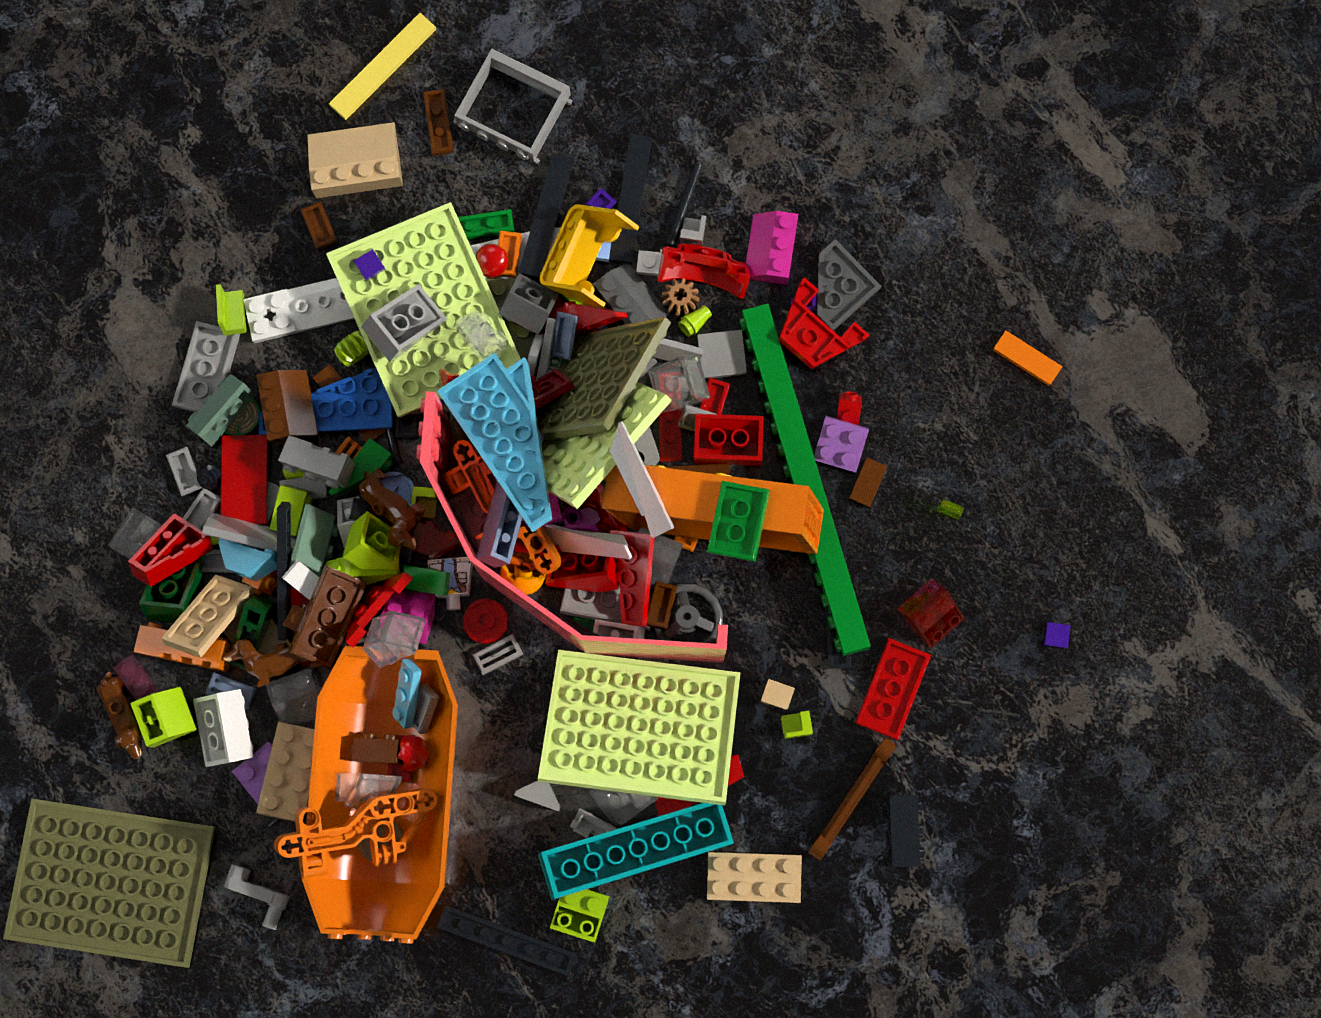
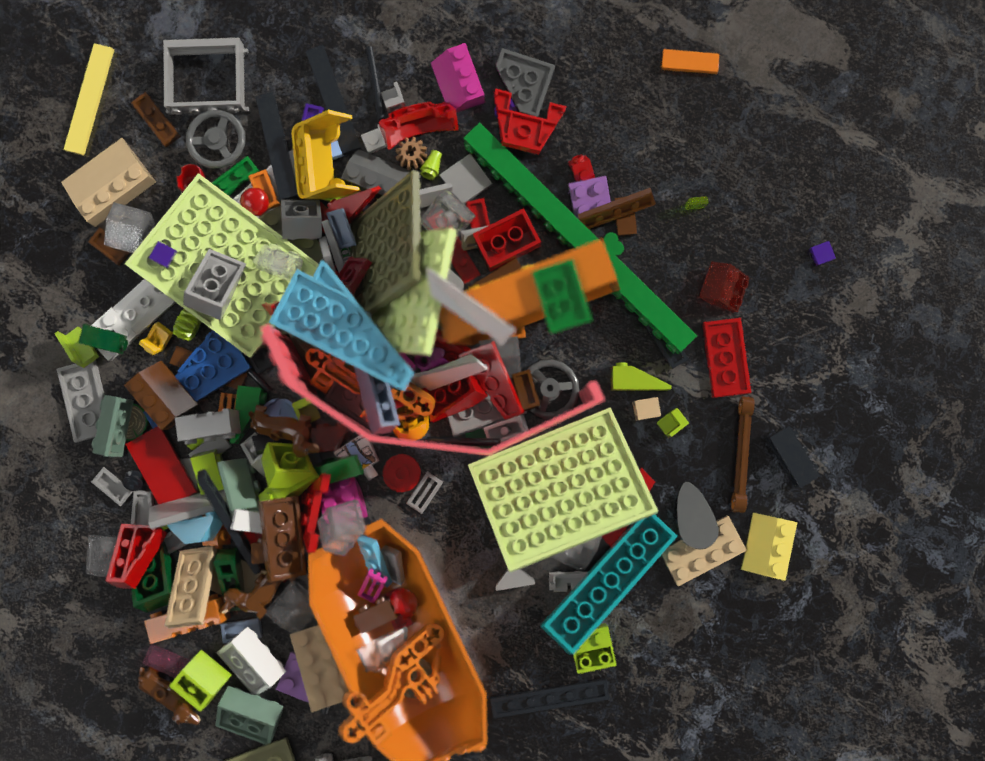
camera: 30 degrees left, 5 degrees up
(189, 782) = (248, 715): none -> sand green slope
(262, 318) = (103, 339): none -> dark green slope
(313, 346) = (156, 339): none -> yellow bracket
(348, 217) = (127, 227): none -> clear slope
(399, 711) = (376, 578): none -> dark pink tile
(439, 197) = (187, 175): none -> red hair
(487, 175) = (215, 139): none -> dark grey piece
(764, 837) = (695, 518): none -> dark grey shield
(779, 655) = (632, 379): none -> lime slope
(826, 910) = (769, 546): none -> light yellow slope
(837, 505) = (612, 243): none -> green tile
(861, 469) = (617, 208): none -> reddish brown tile

